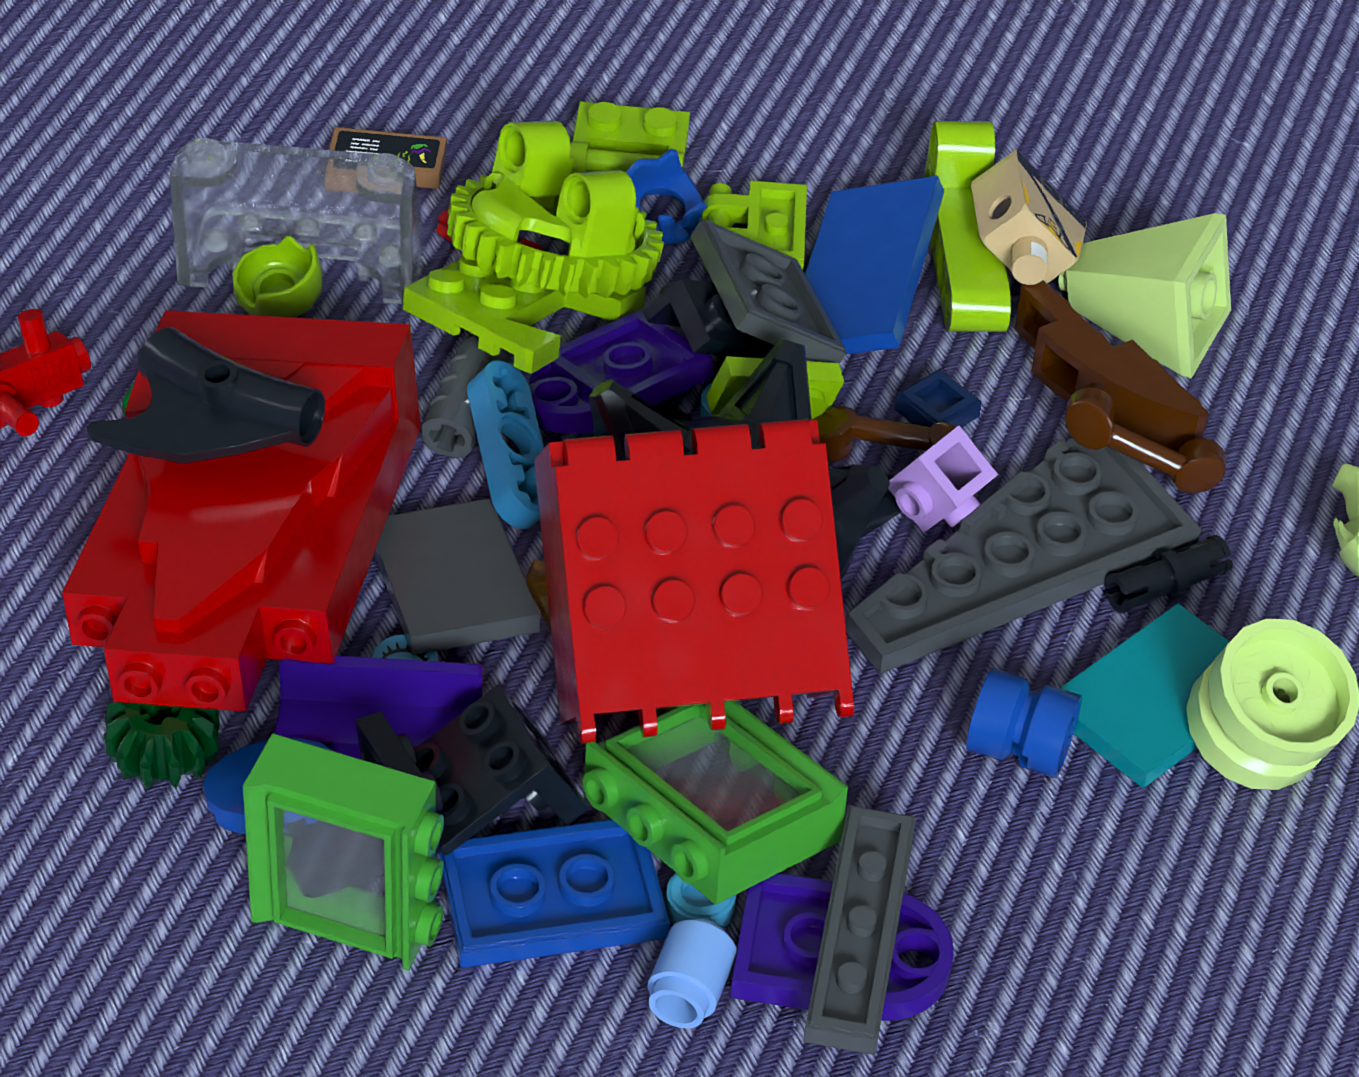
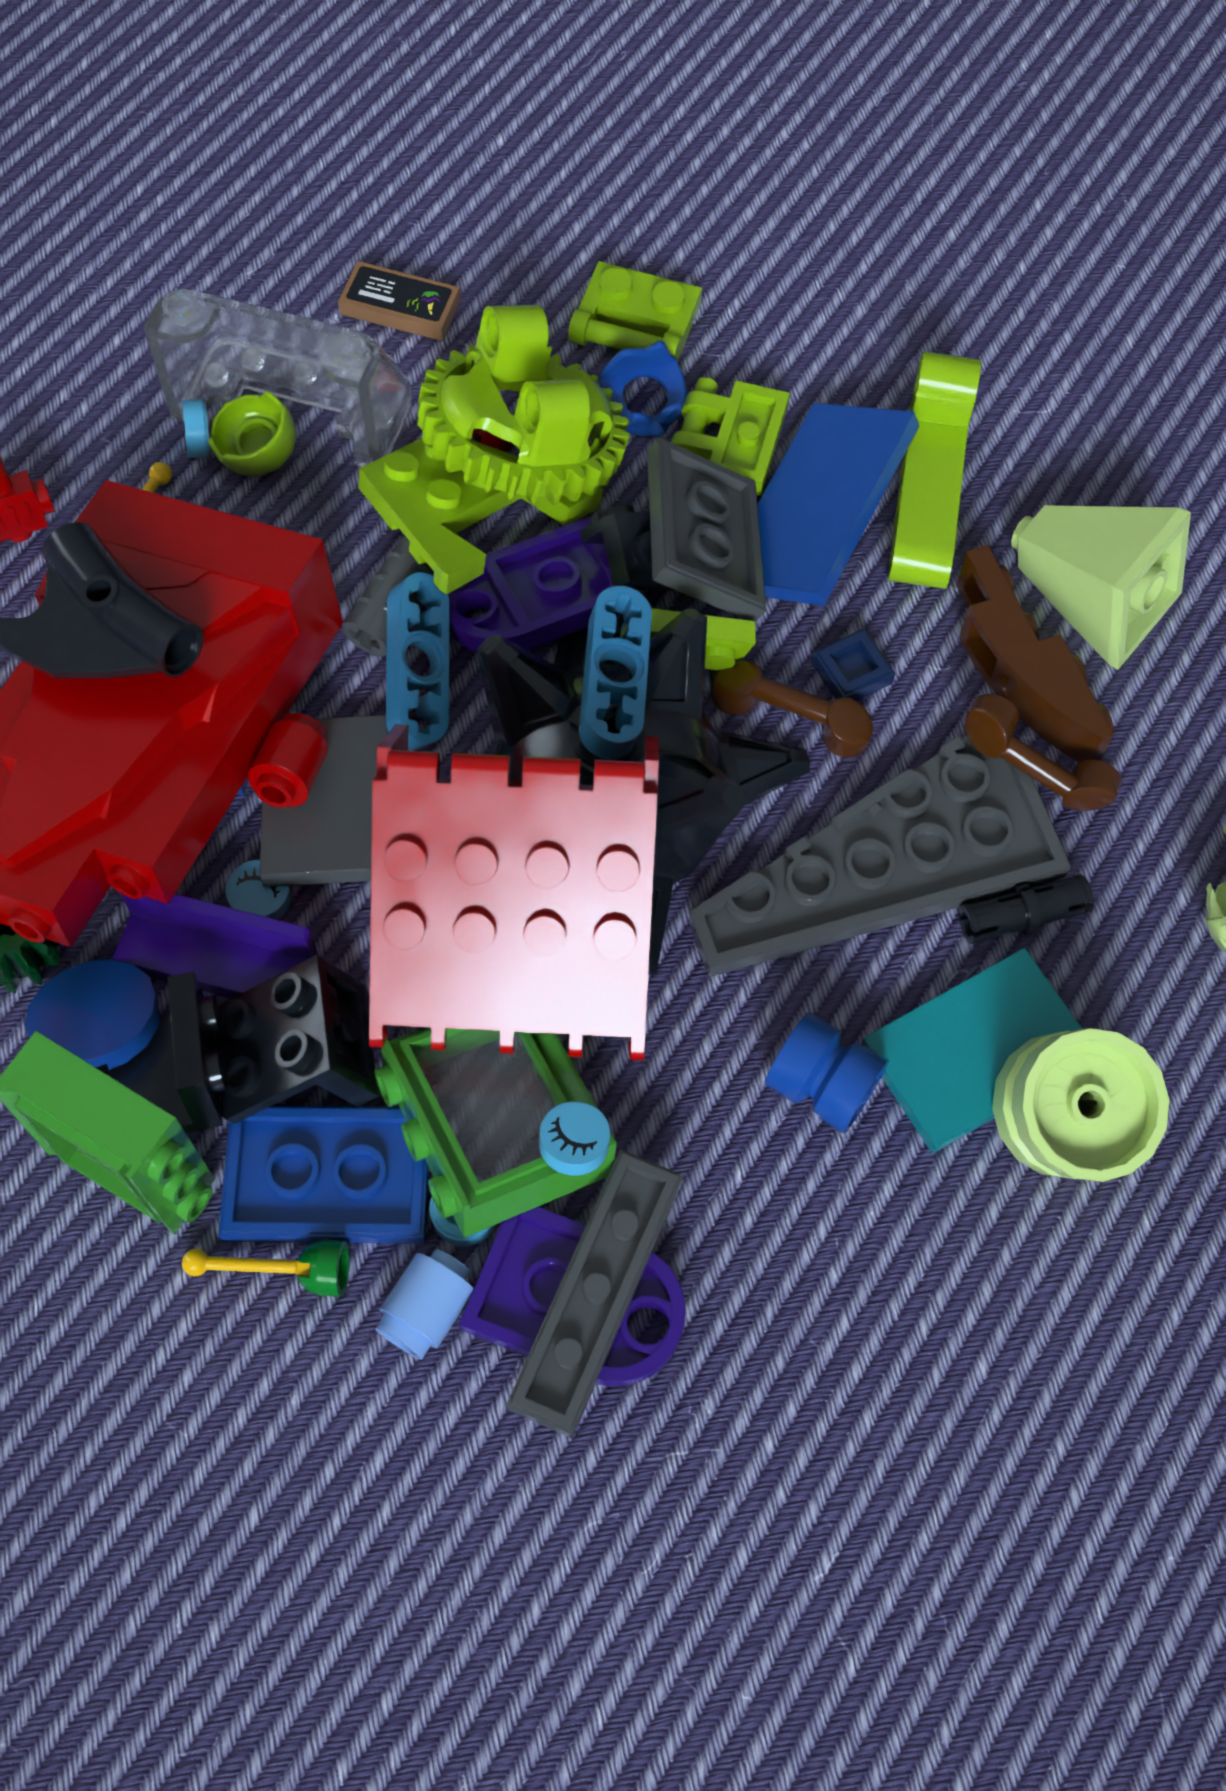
camera: 15 degrees right, 20 degrees up
(214, 283) = (196, 428): none -> medium azure tile
(413, 536) = (289, 761): none -> red brick
(571, 964) = (320, 1267): none -> hinge
(737, 375) = (600, 691): none -> dark azure beam
(809, 781) = (574, 1138): none -> medium azure tile
(942, 481) = (821, 774): lavender brick -> none
(1035, 229) = (991, 479): tan torso -> none

